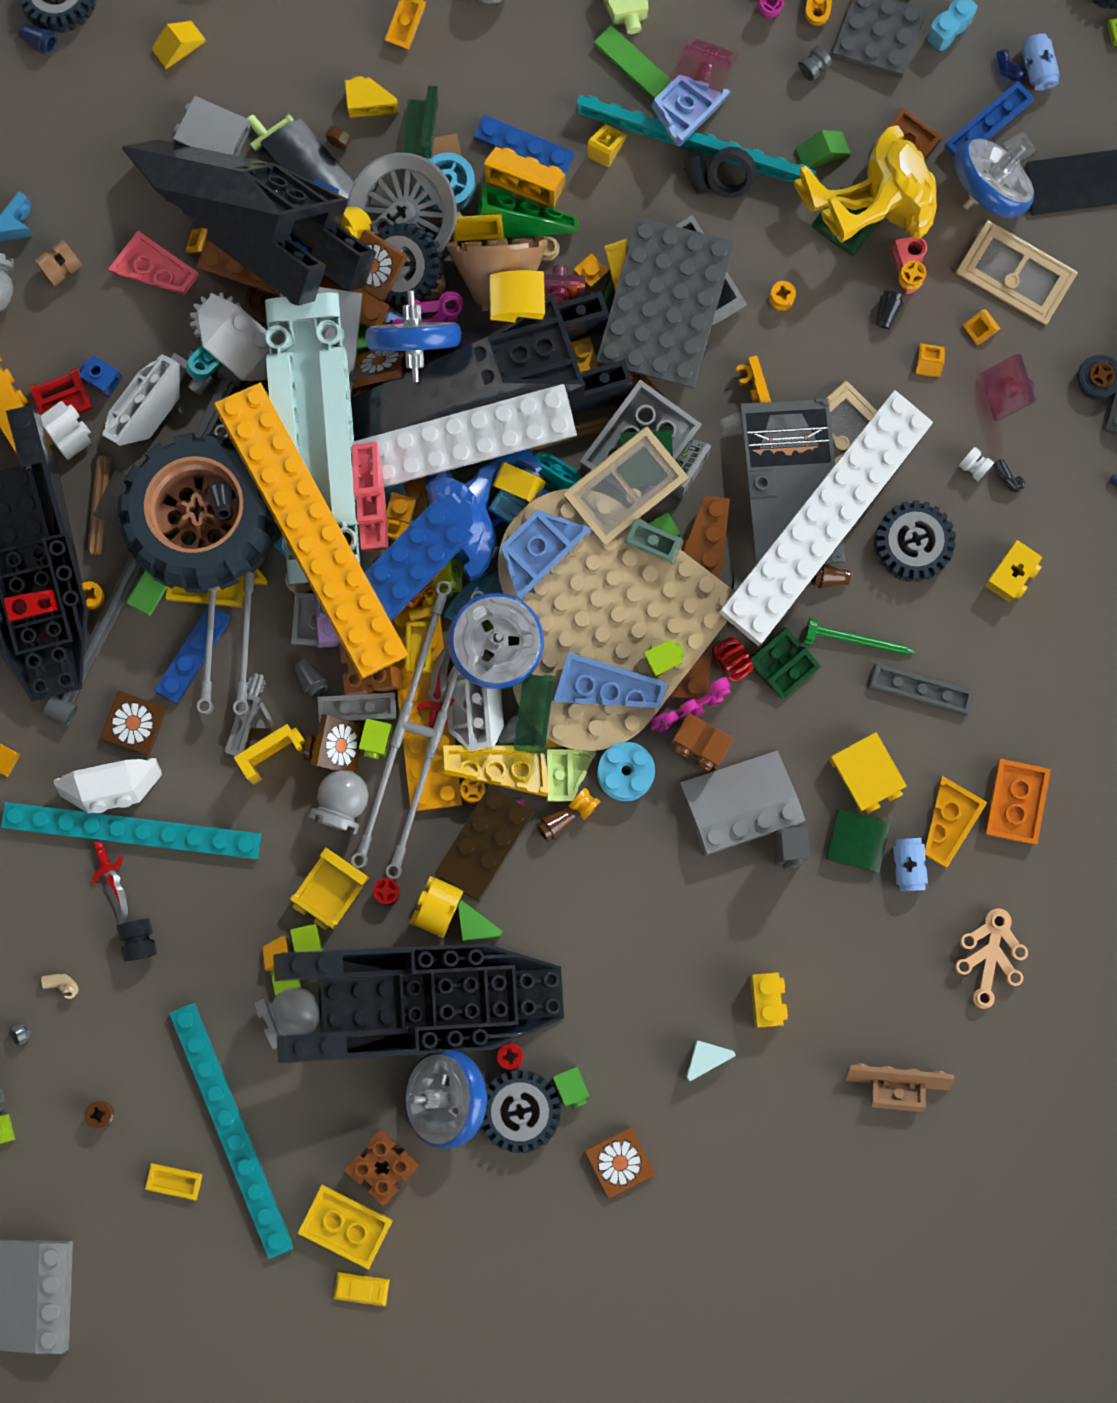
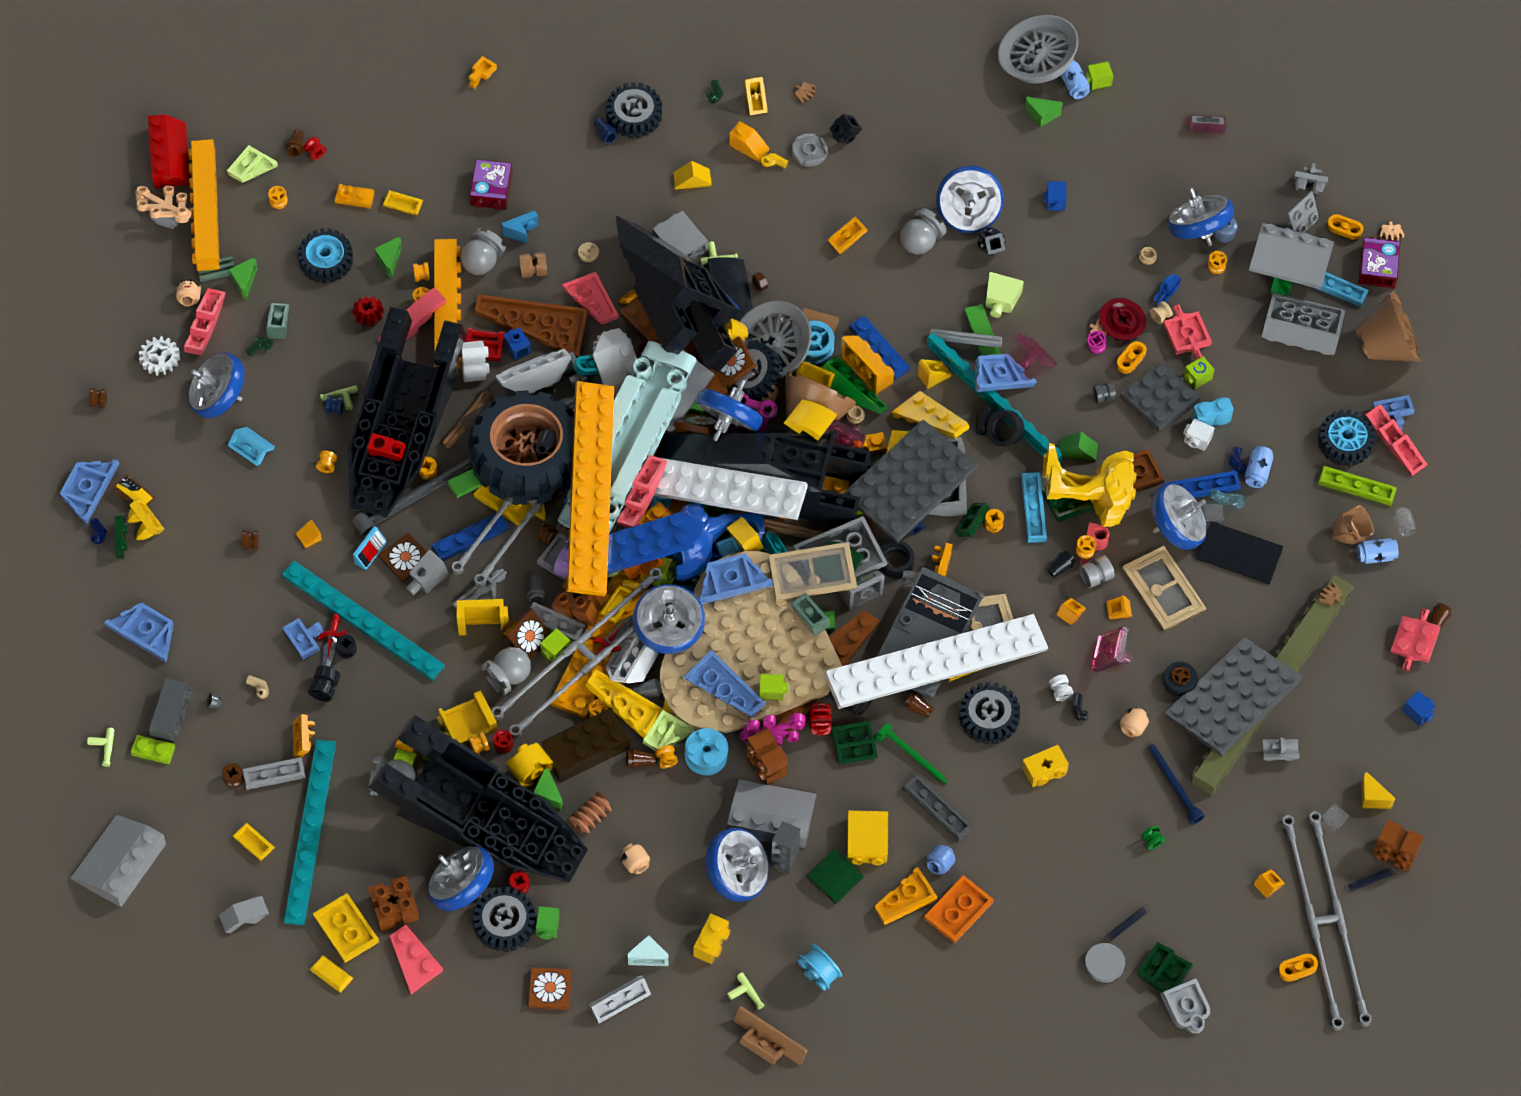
camera: 30 degrees right, 20 degrees down
(75, 895) = (303, 638): none -> medium blue plate
(85, 736) = (369, 548): none -> slope
(109, 784) = (367, 580): white wedge -> none
(112, 208) = (588, 252): none -> tan piece
(120, 329) = (546, 323): none -> dark orange wing
(136, 879) = (346, 651): none -> black wheel
(146, 1084) = (274, 773): none -> light grey plate
(152, 1025) = (301, 735): none -> light orange plate
(177, 724) = (427, 573): none -> light grey torso
(218, 1279) = (248, 911): none -> light grey slope
(283, 602) = (546, 534): none -> reddish brown wheel
(360, 911) = (478, 743): none -> light orange wheel
(368, 98) = (794, 269): yellow slope -> none
(421, 124) = (820, 299): clear green panel -> none
(445, 1217) = (415, 960): none -> coral wing
(534, 714) = (667, 679): clear green panel -> none
(541, 925) = (589, 813): none -> nougat piece
(620, 79) = (968, 338): none -> light grey axle
(623, 951) = (635, 858): none -> light nougat head
(627, 200) = (940, 418): none -> yellow wing
(707, 1132) = (619, 999): none -> plate
(715, 395) = (903, 547): none -> black tyre
(735, 901) = (751, 867): none -> flat silver wheel
(758, 308) = (972, 520): none -> dark green plate
(815, 253) = (1033, 507): none -> medium azure tile
(839, 1032) = (745, 987): none -> yellowish green piece
(902, 852) = (860, 908): light blue piece -> none
(910, 966) = (819, 967): none -> medium azure wheel
(937, 294) = (1095, 572): none -> light grey wheel
(950, 58) = (1198, 434): none -> white brick
(964, 754) = (940, 859): none -> medium blue head
(992, 953) = (881, 994): light nougat plant -> none
(1027, 120) = (1228, 499): none -> clear light blue arm
(1081, 461) = (1134, 722): none -> light nougat head

